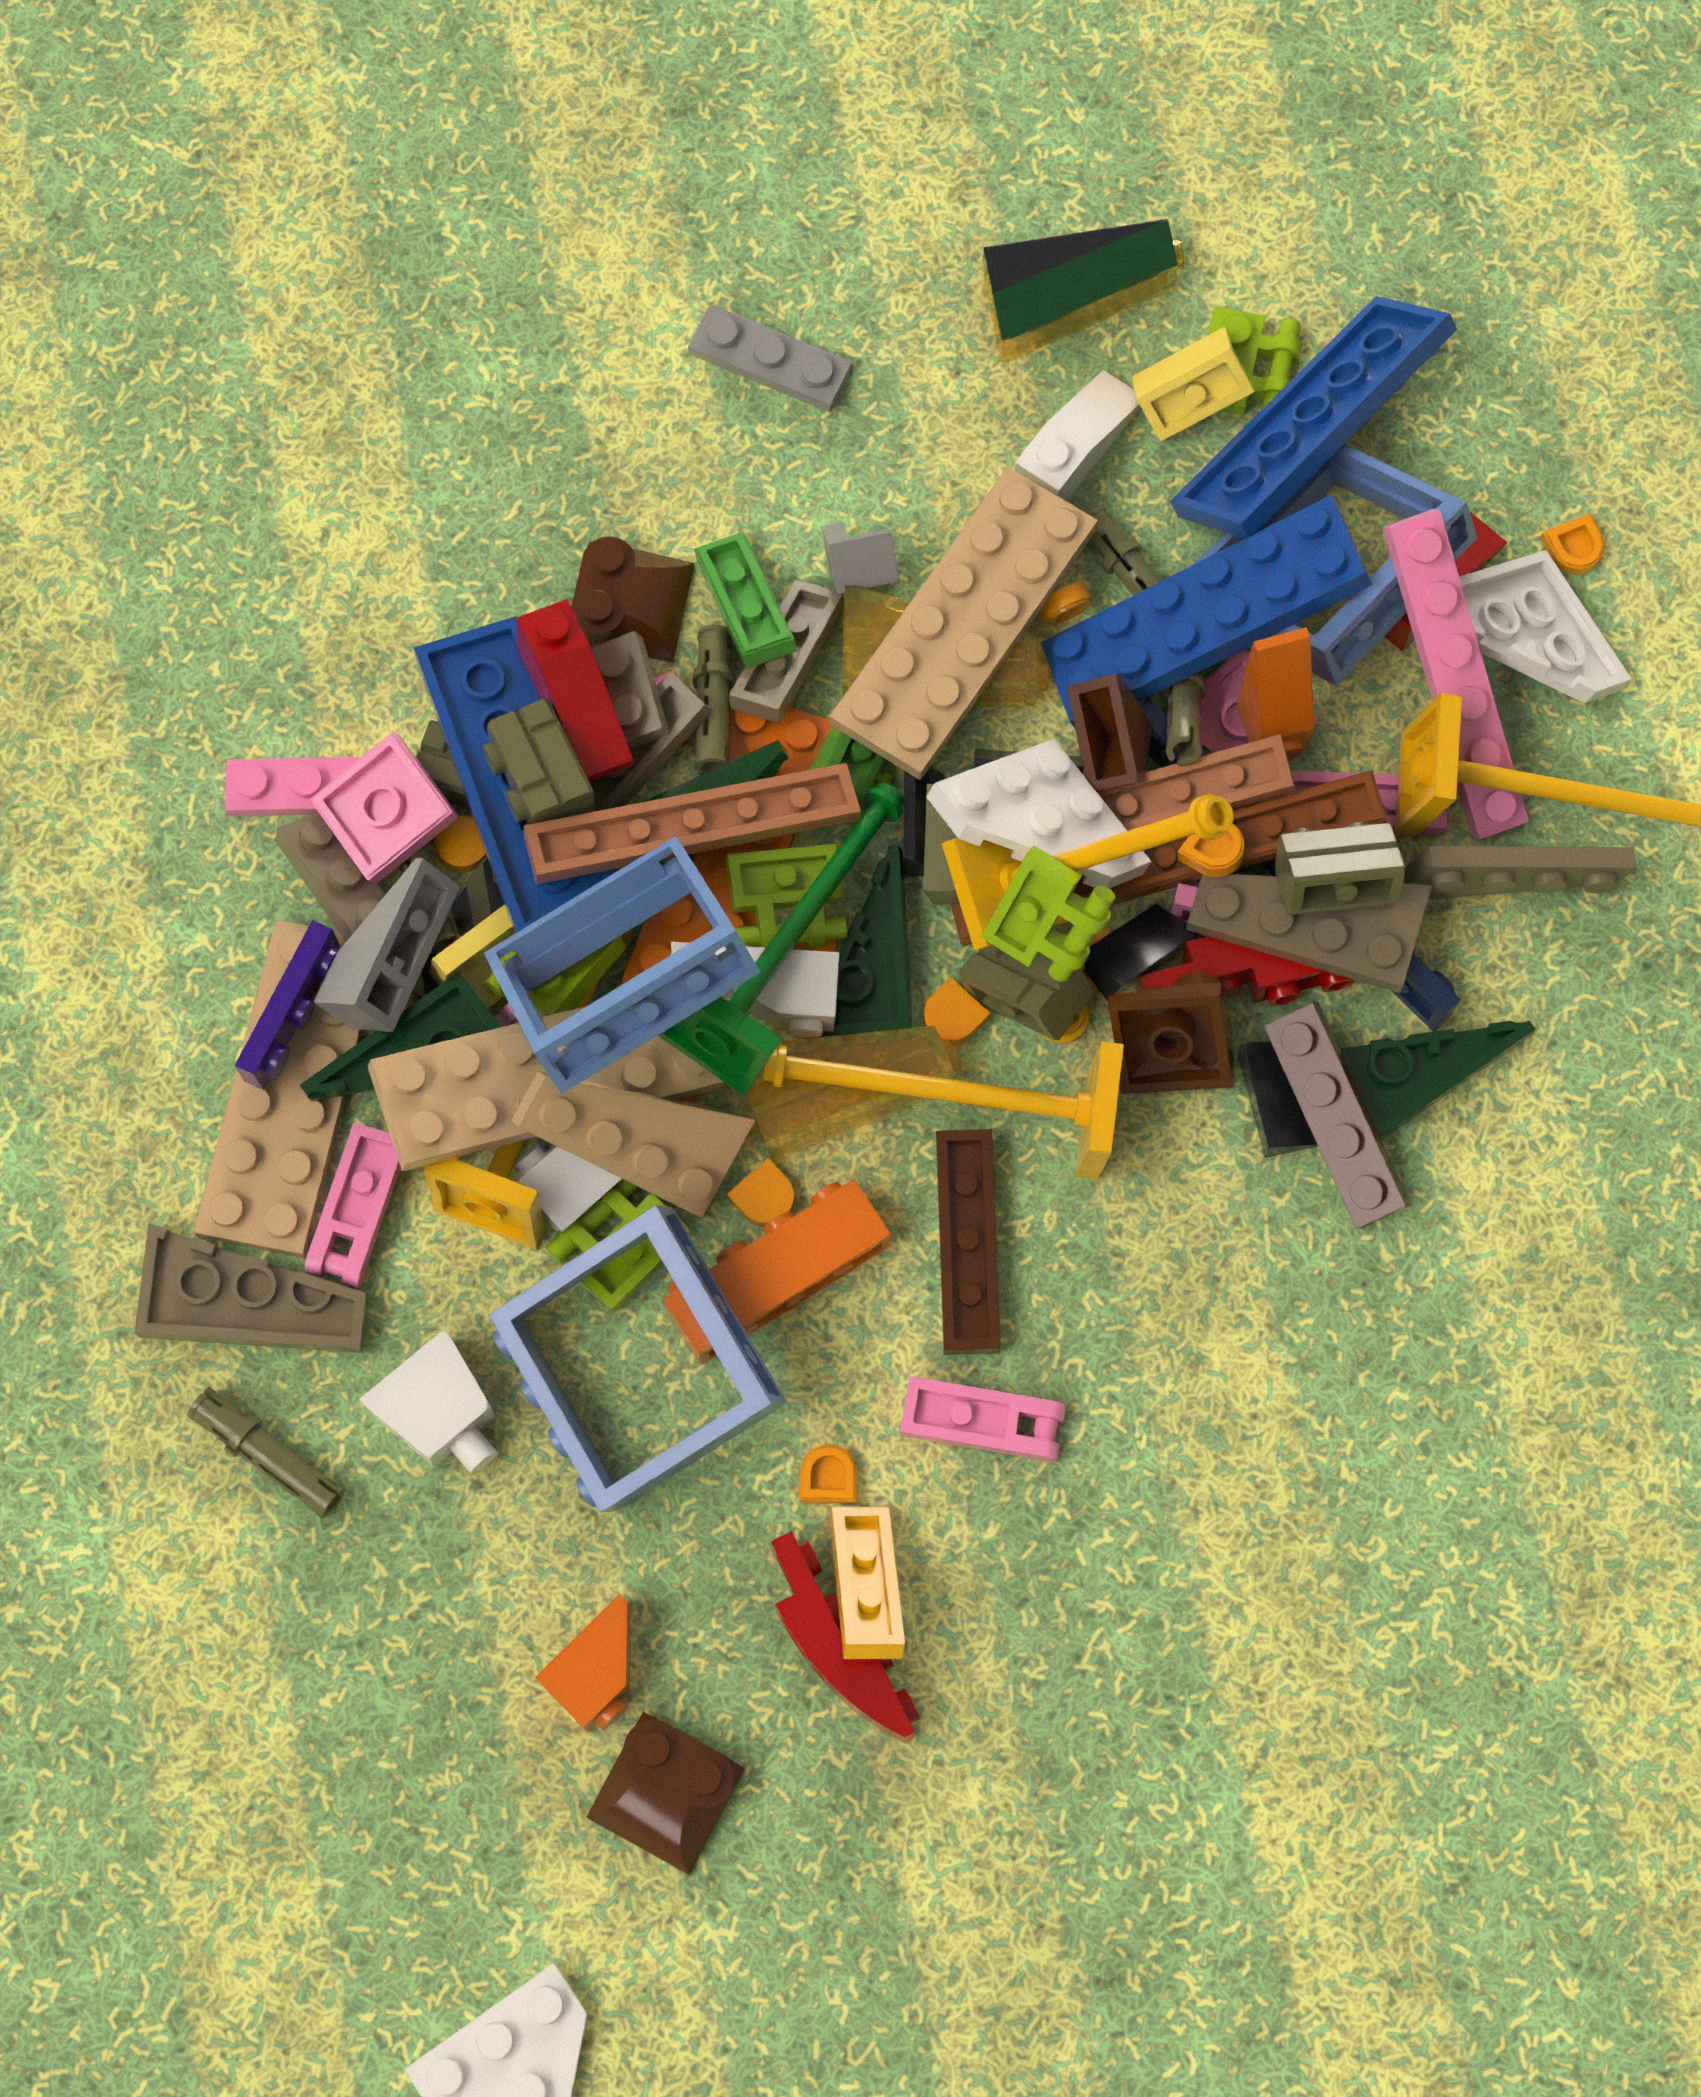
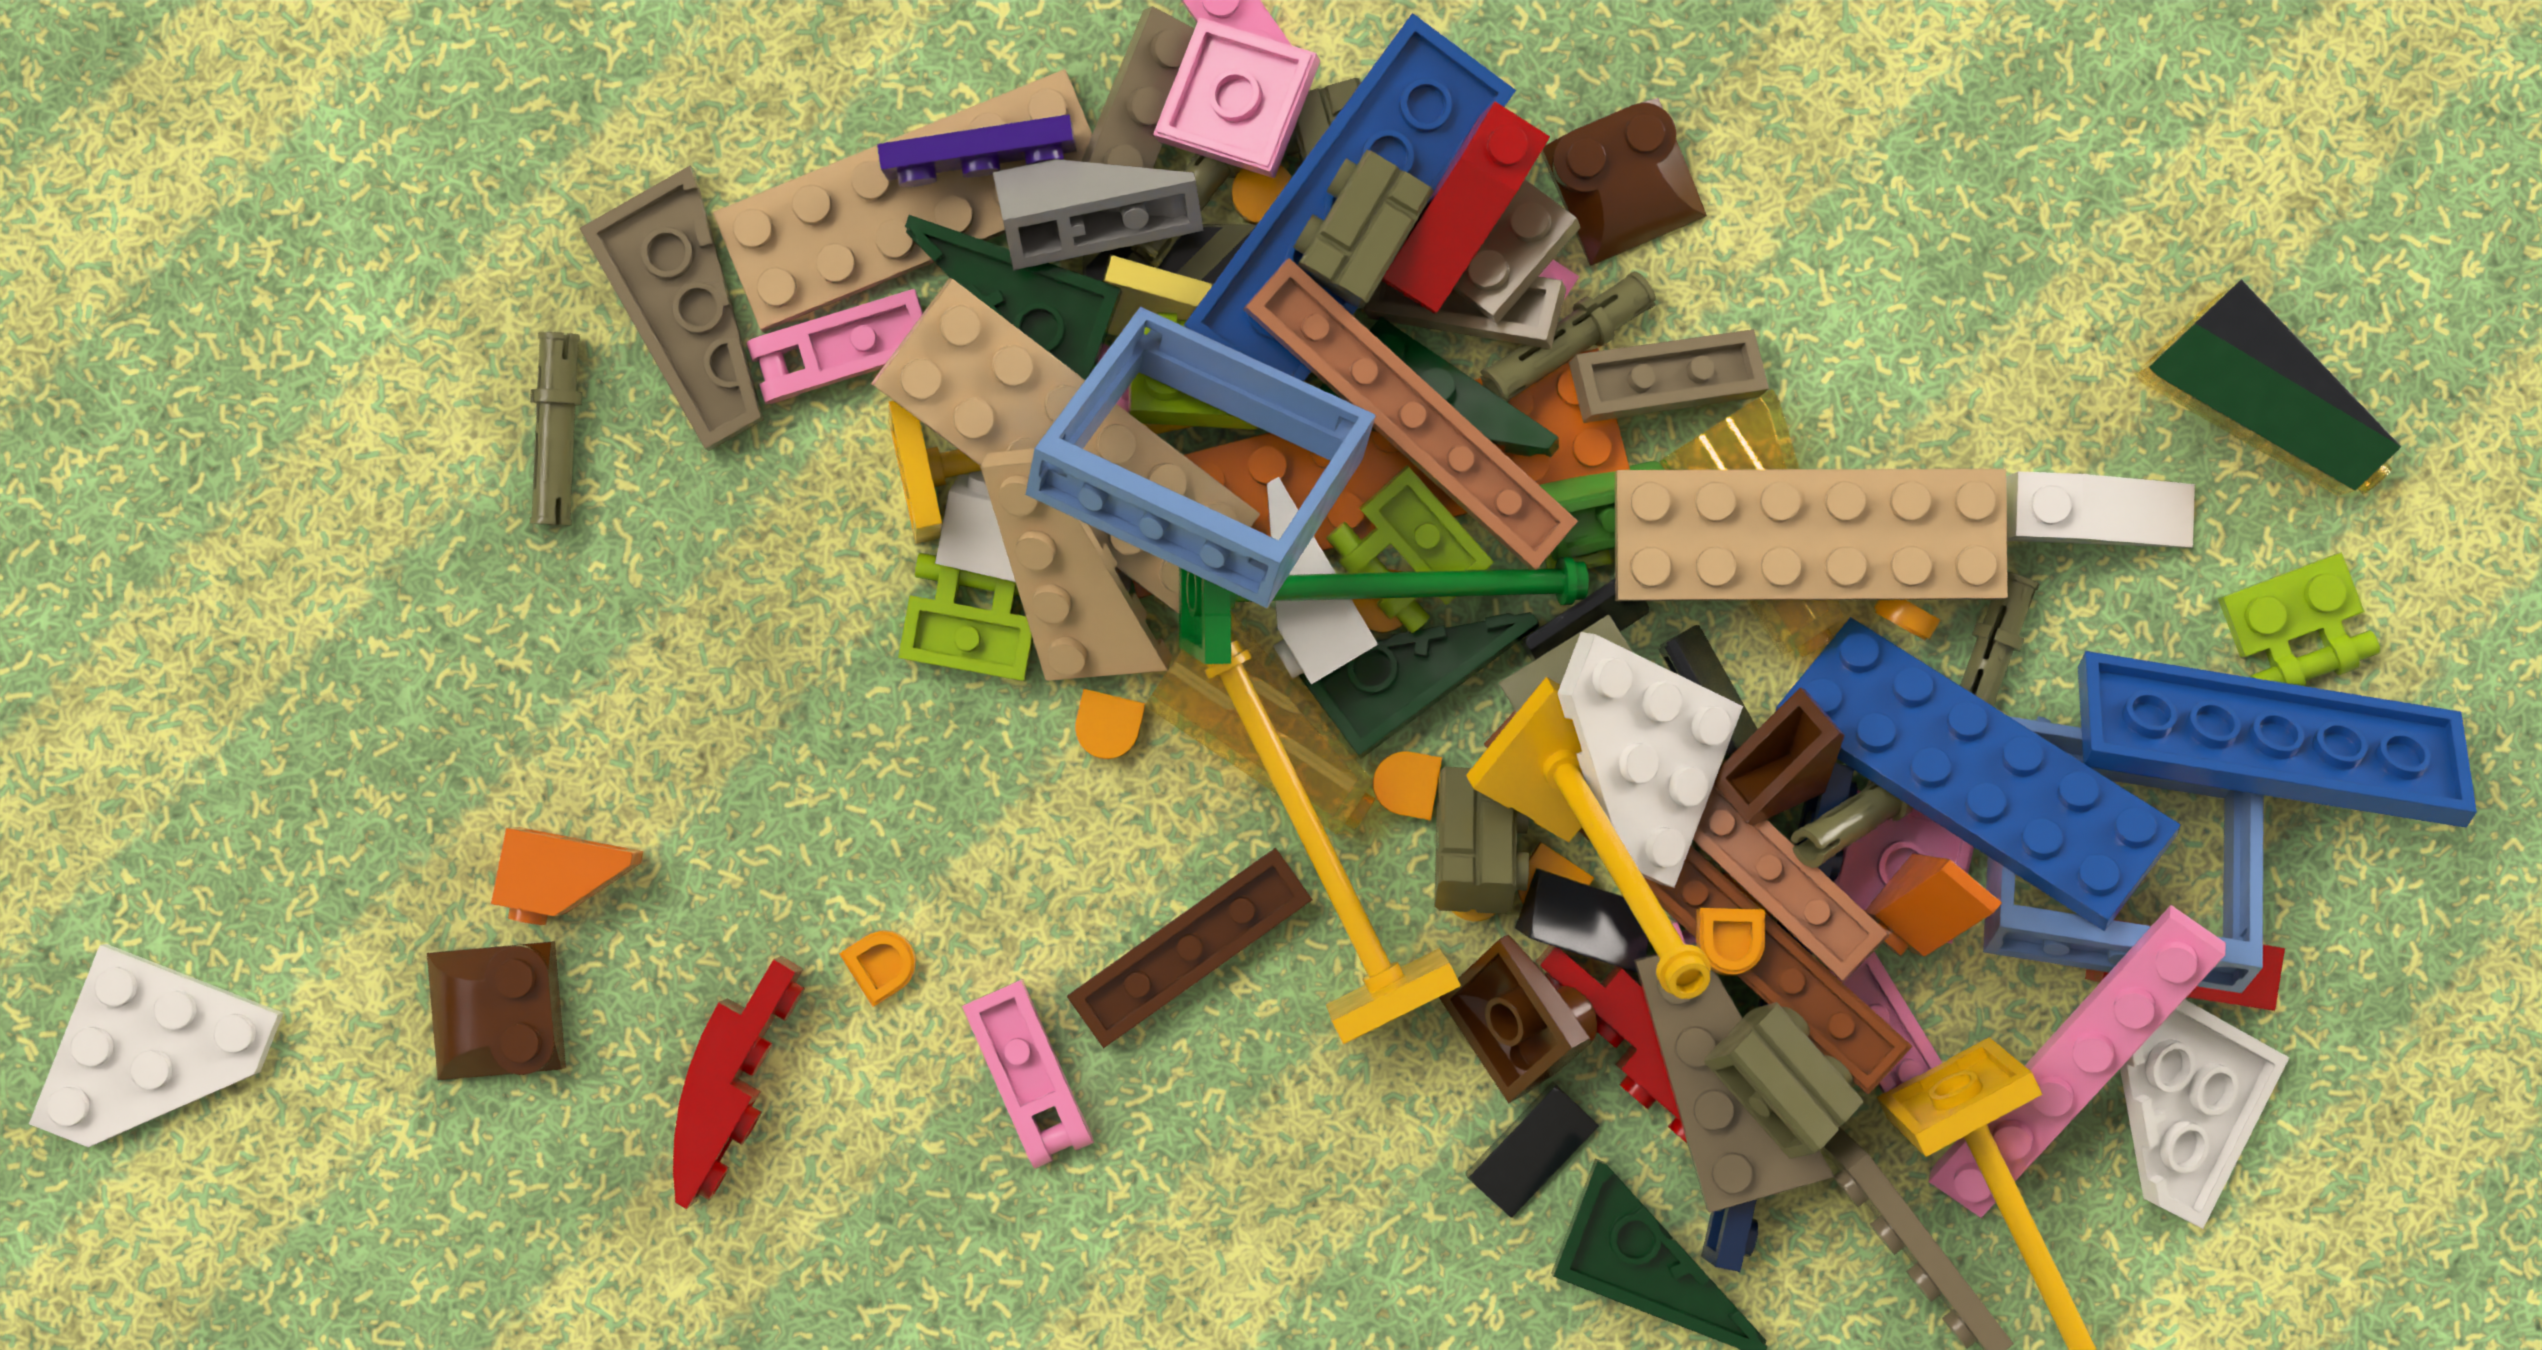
camera: 55 degrees right, 15 degrees up
(435, 1406) = (699, 558): white torso -> none
(712, 1313) = (940, 763): medium blue window -> none
(745, 600) = (1695, 297): bright green tile -> none
(770, 358) = (1980, 139): light grey plate -> none
(788, 1262) = (1039, 788): orange brick -> none
(859, 559) = (1811, 384): light grey panel -> none
(867, 1583) = (793, 1074): yellow plate -> none
(1031, 907) = (1535, 817): lime plate -> none
(1191, 384) = (2233, 586): light yellow panel -> none
(1337, 1115) = (1546, 1221): plate -> none
(1575, 545) = (2317, 1081): light orange tile -> none

